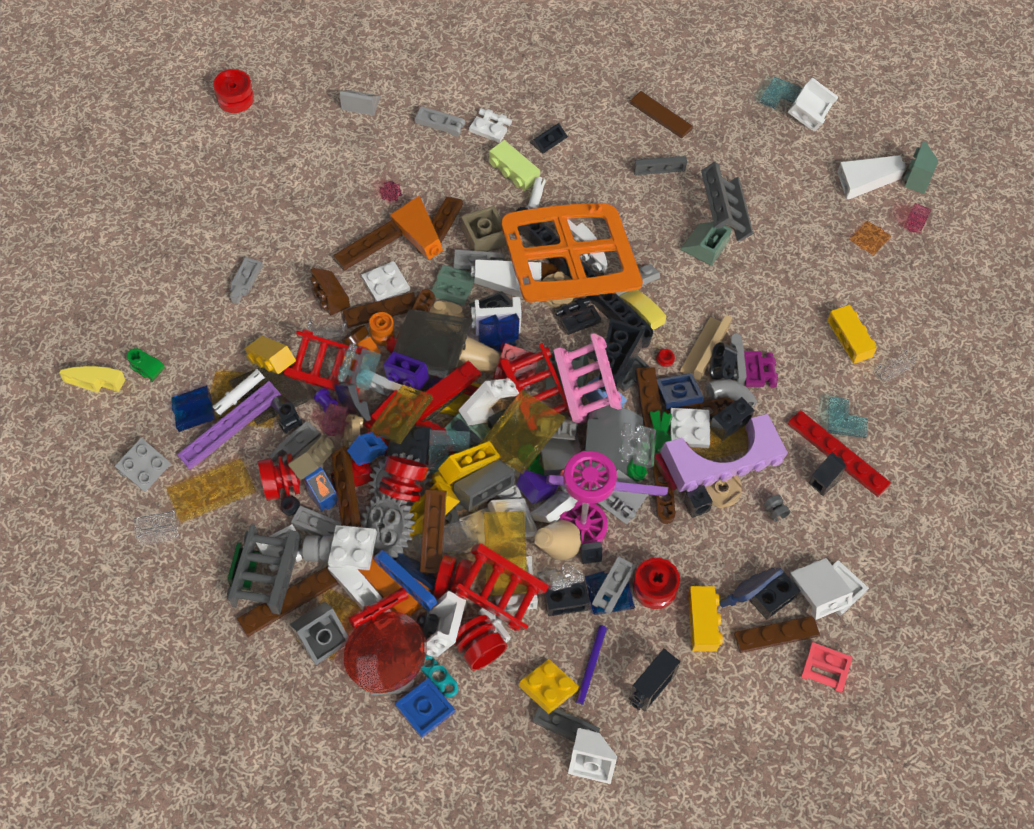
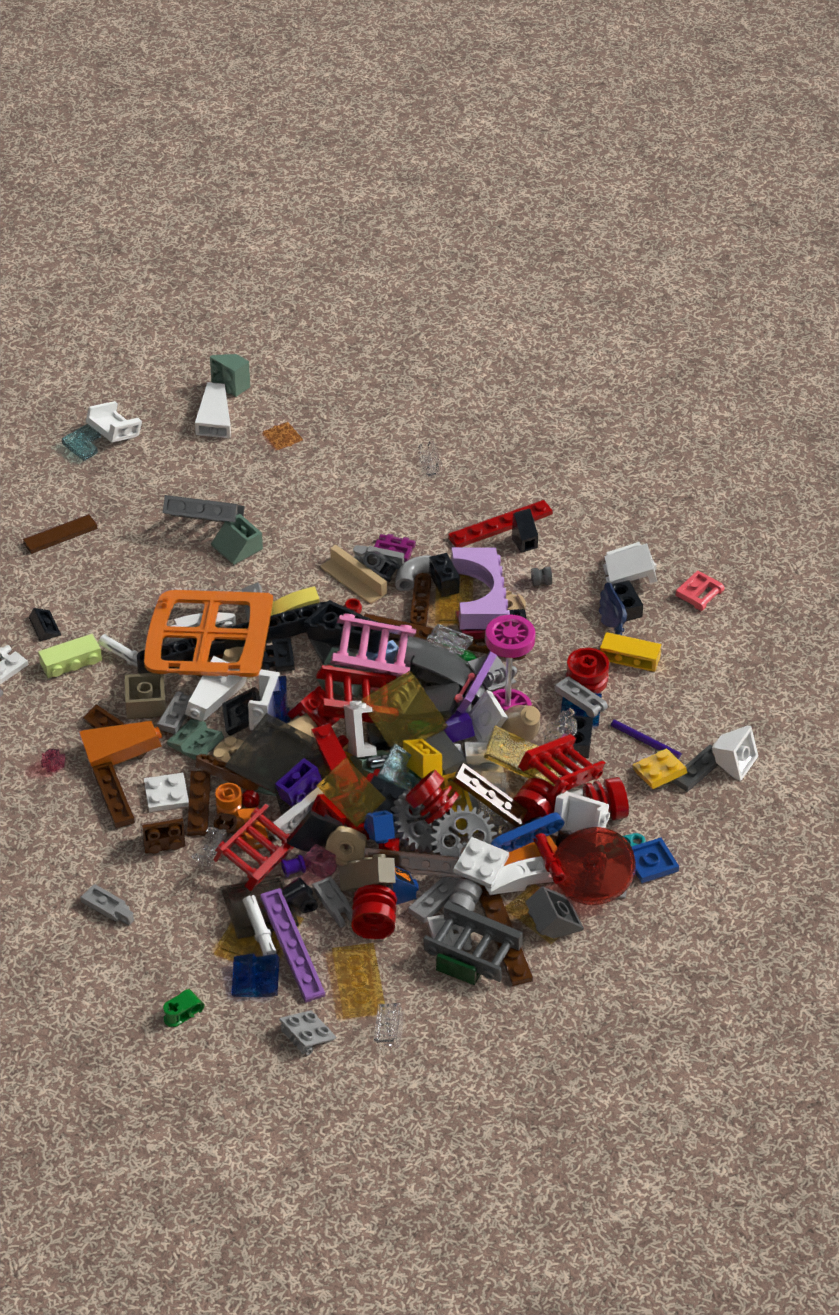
camera: 70 degrees left, 15 degrees down
(93, 377) = (181, 1054): light yellow slope -> none
(269, 354) = (226, 889): yellow brick -> none
(290, 505) = (404, 918): black plate -> none
(365, 368) = (277, 817): clear light blue plate -> none
(591, 552) = (540, 704): black plate -> none
(653, 680) = (680, 694): black window -> none
(660, 165) = (127, 549): dark grey plate -> none
(661, 429) = (428, 623): green piece -> none
(679, 391) = (397, 603): dark blue plate -> none
(691, 425) = (438, 608): white plate -> none
(776, 634) = (658, 613): reddish brown plate -> none
(841, 423) = (469, 512): clear light blue plate -> none
(852, 334) = (384, 476): yellow brick -> none
(917, 218) = (279, 397): clear pink brick -> none

